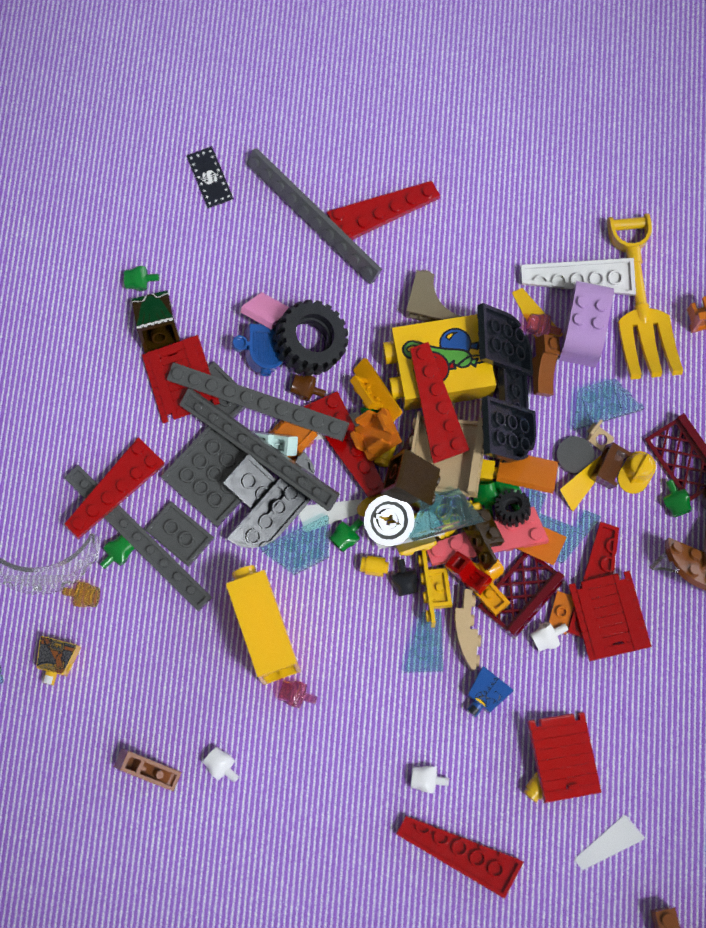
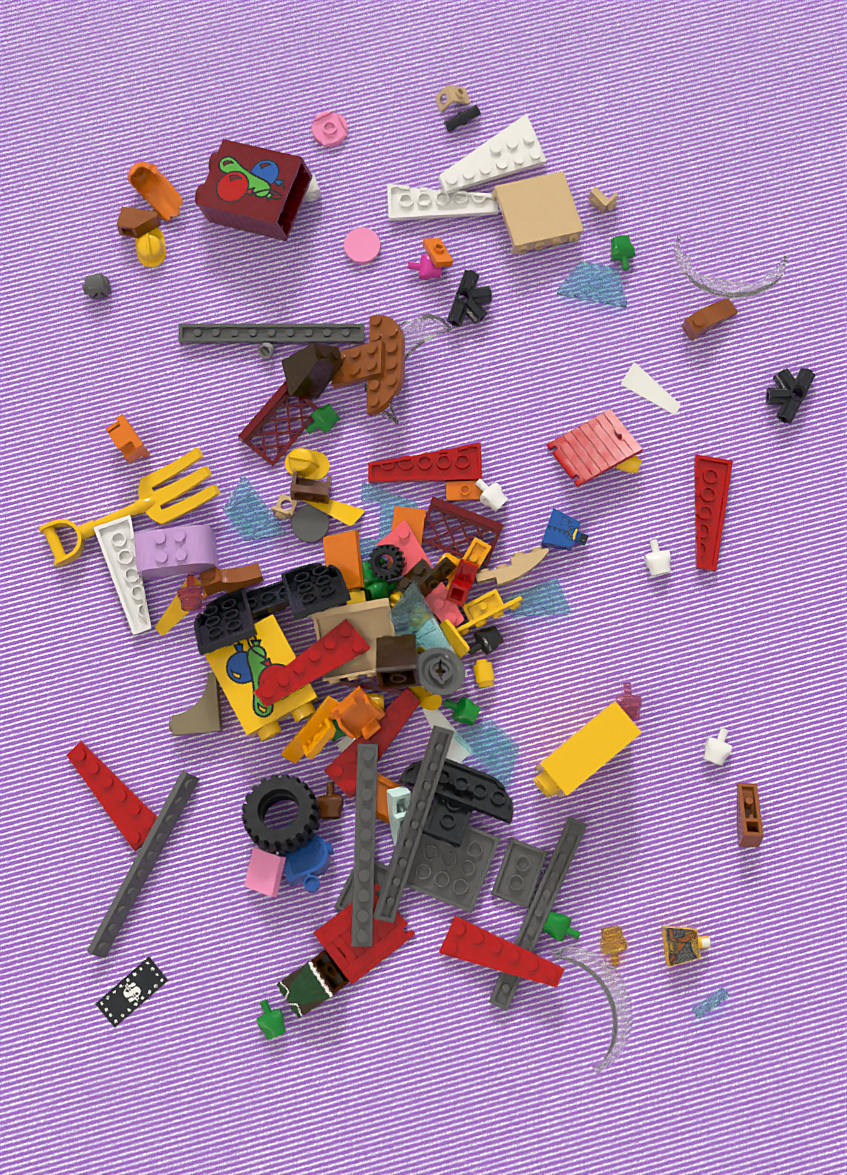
camera: 110 degrees left, 5 degrees up
(608, 615) = (454, 446): red door -> none

